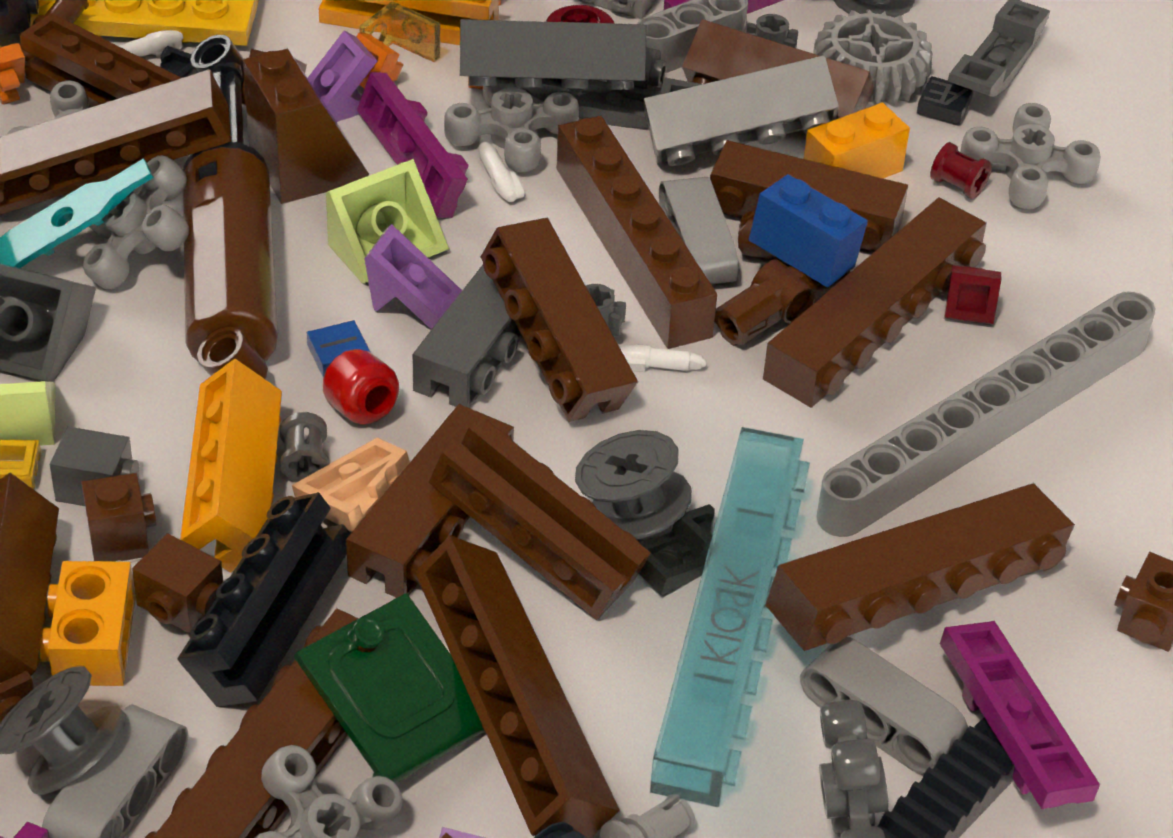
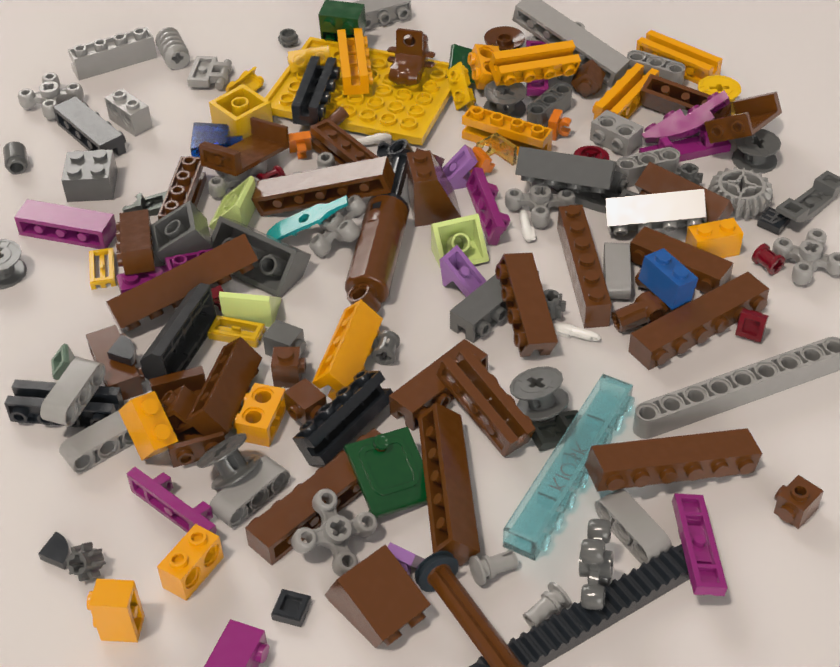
camera: 20 degrees right, 0 degrees up
(332, 341) = (419, 302): blue tile -> none
(355, 481) = (403, 368): light nougat wing -> none
(360, 386) = (422, 322): red head -> none

